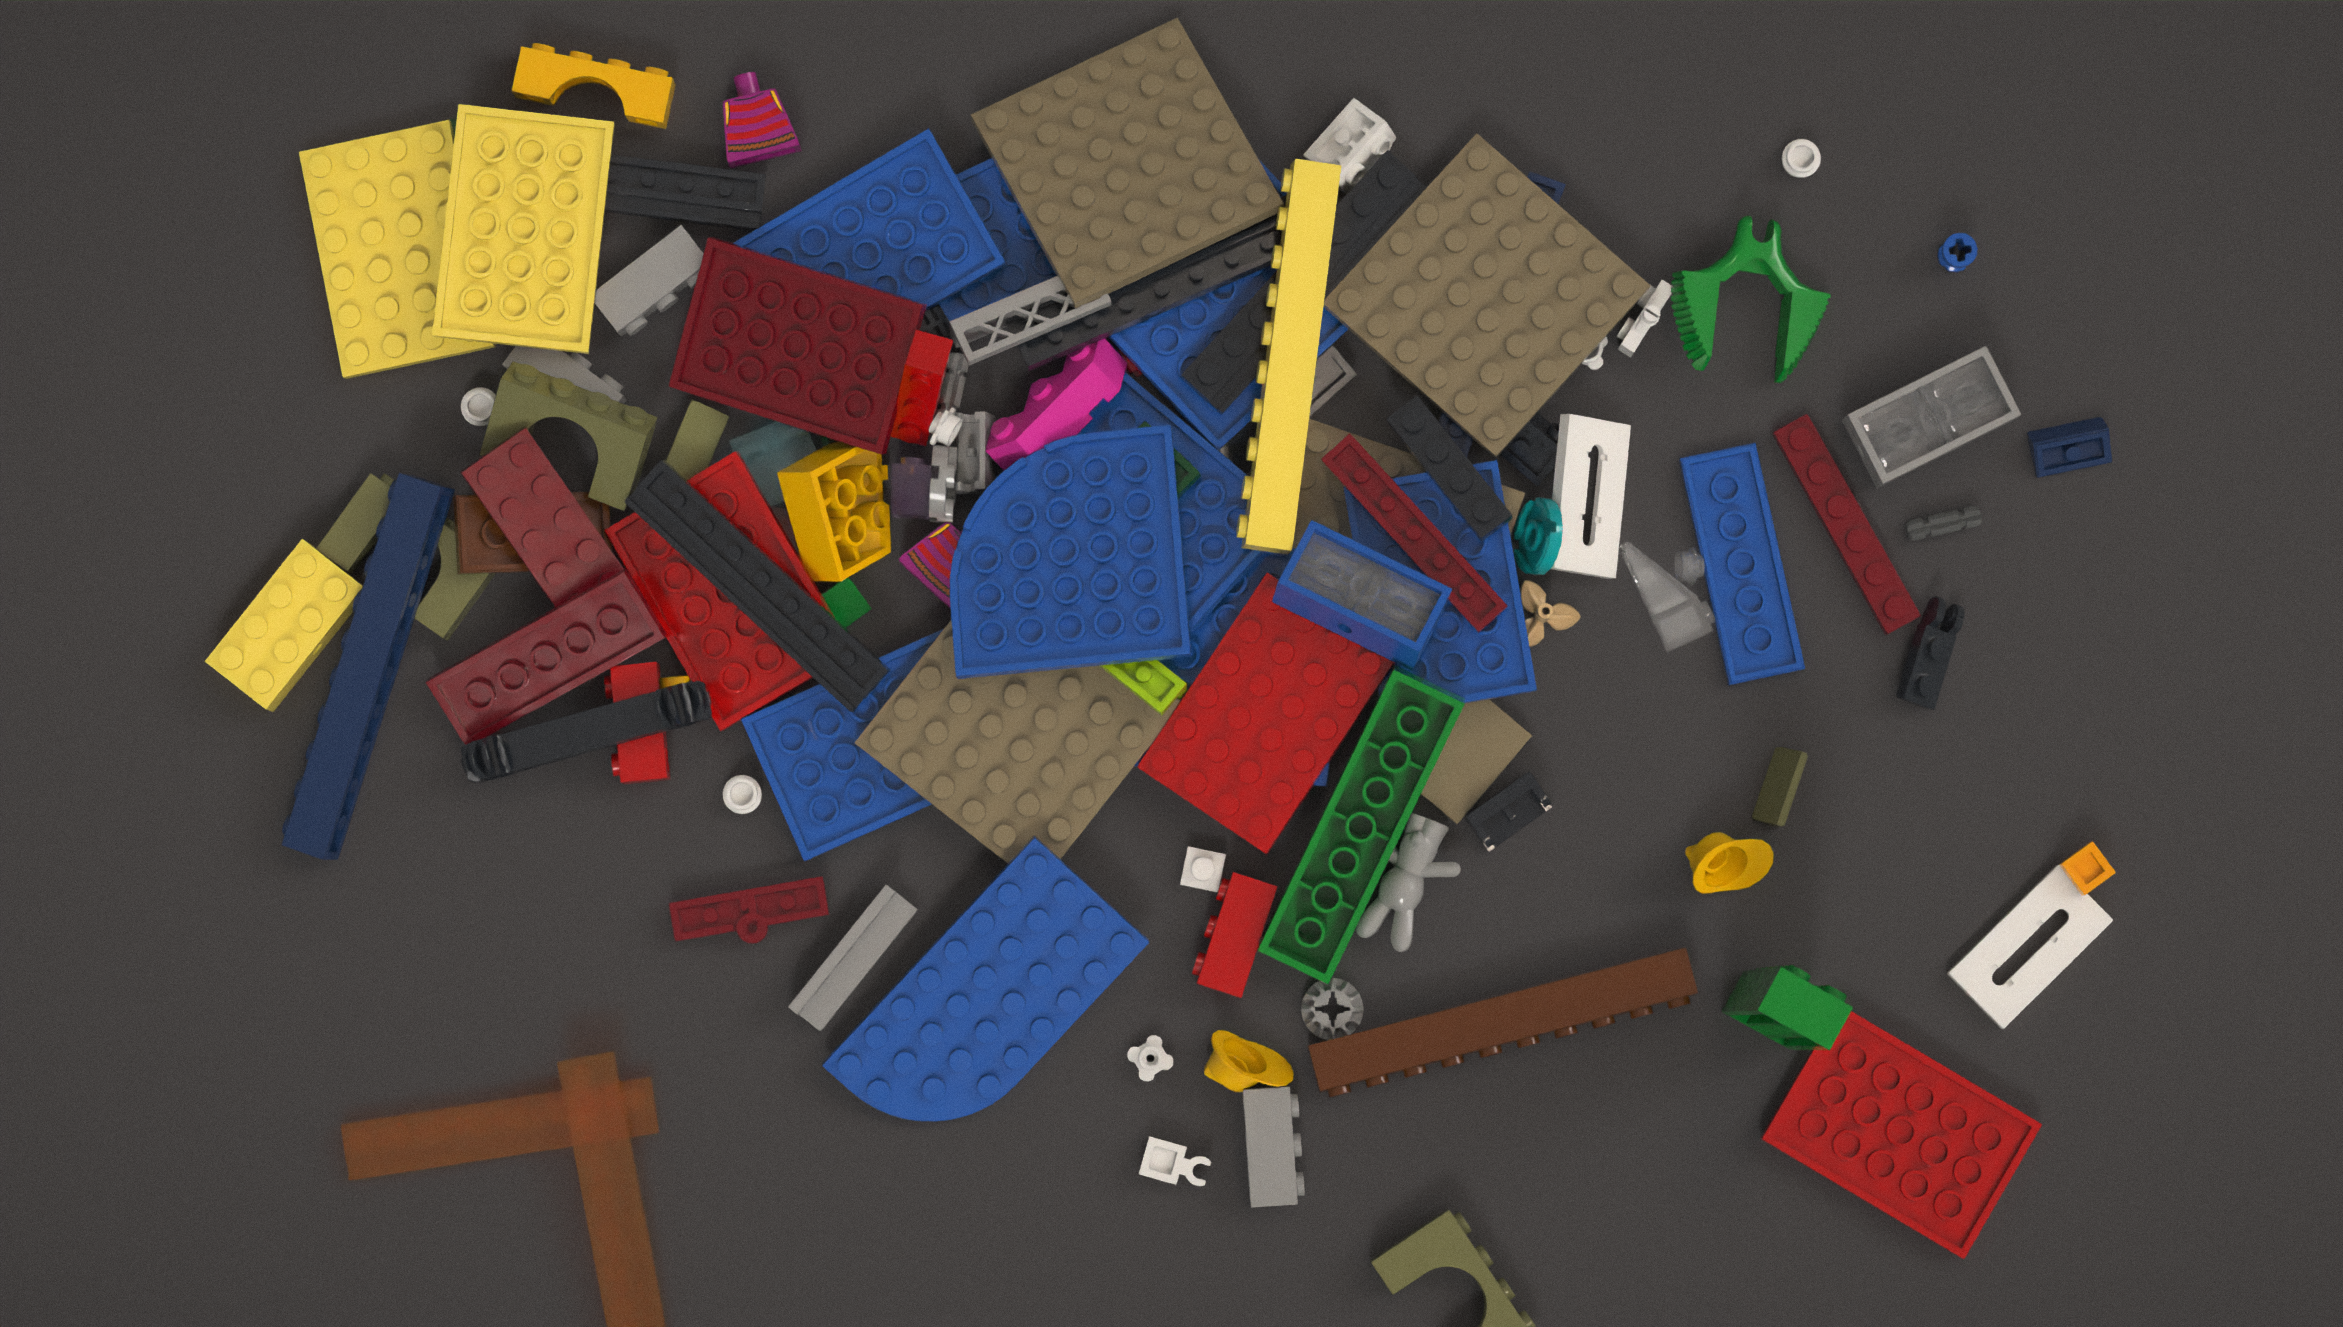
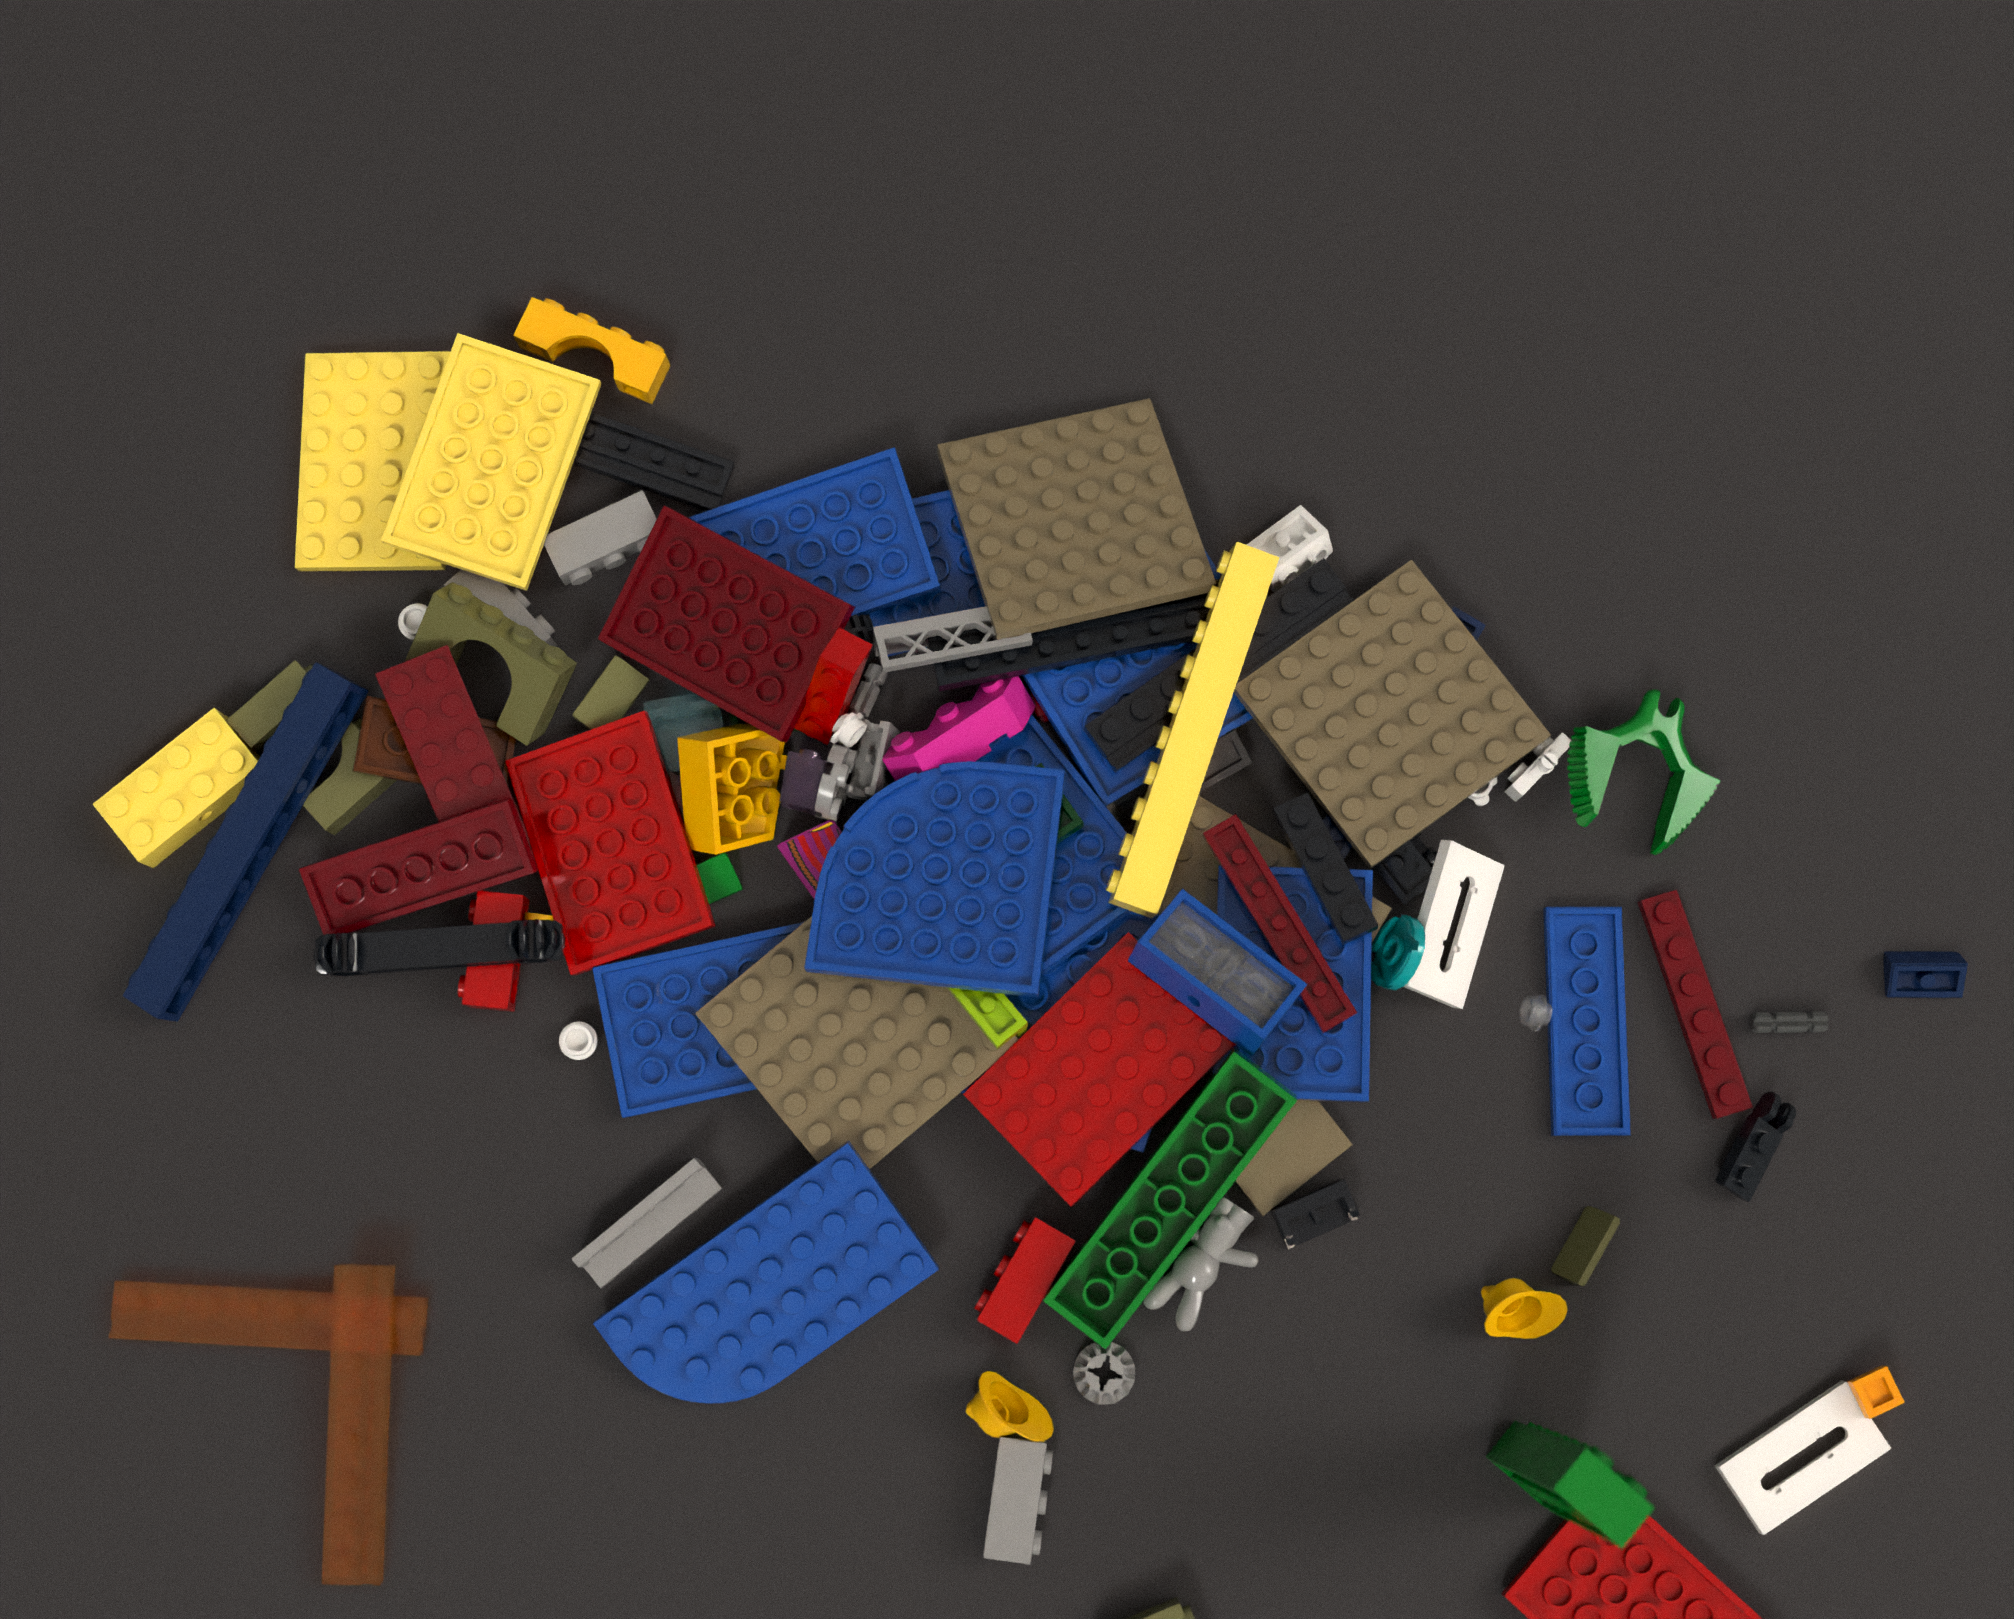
camera: 15 degrees right, 5 degrees down
(749, 910) = (558, 1154): dark red hinge -> none
(756, 124) = (735, 415): magenta torso -> none
(757, 585) = (636, 843): black plate -> none
(1139, 1056) = (911, 1394): white plate -> none
(1166, 1161) = (909, 1491): white plate -> none
(1202, 869) = (1006, 1207): white plate -> none
(1502, 1021) = (1270, 1421): reddish brown brick -> none
(1559, 616) = (1399, 1033): tan plant -> none
(1670, 604) = (1511, 1045): clear slope -> none
(1801, 158) = (1713, 648): white plate -> none
(1931, 417) = (1798, 917): clear brick -> none
(1964, 243) = (1856, 758): blue bush -> none

